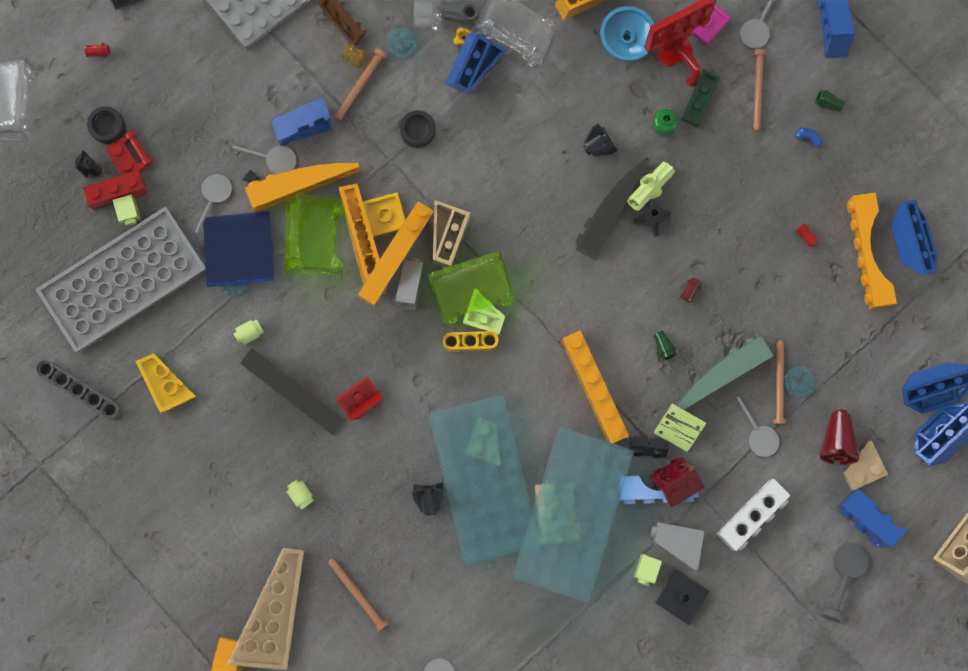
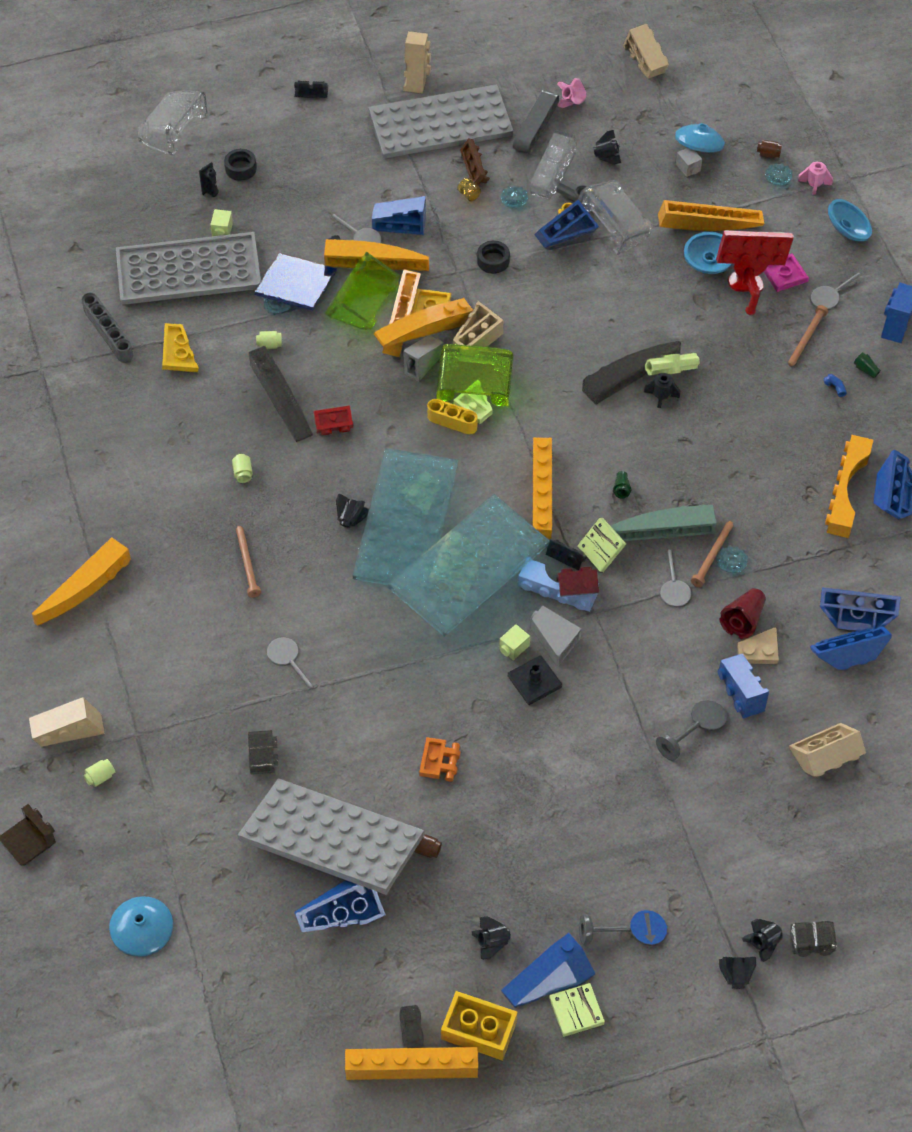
camera: 30 degrees right, 25 degrees down
(97, 50) = (265, 116): red pin -> none
(104, 192) = (206, 203): red brick -> none
(122, 157) = (240, 194): red plate -> none
(216, 190) = (300, 238): light grey piece -> none
(270, 626) = (159, 548): tan wing -> none
(361, 82) = (489, 198): nougat bar -> none
(599, 142) = (642, 318): black brick -> none
(665, 122) = (709, 325): green head -> none
(691, 289) = (669, 453): dark red pin -> none
(700, 98) = (751, 324): dark green tile -> none
(728, 532) = (640, 632): white brick -> none
(807, 235) = (794, 449): red pin -> none

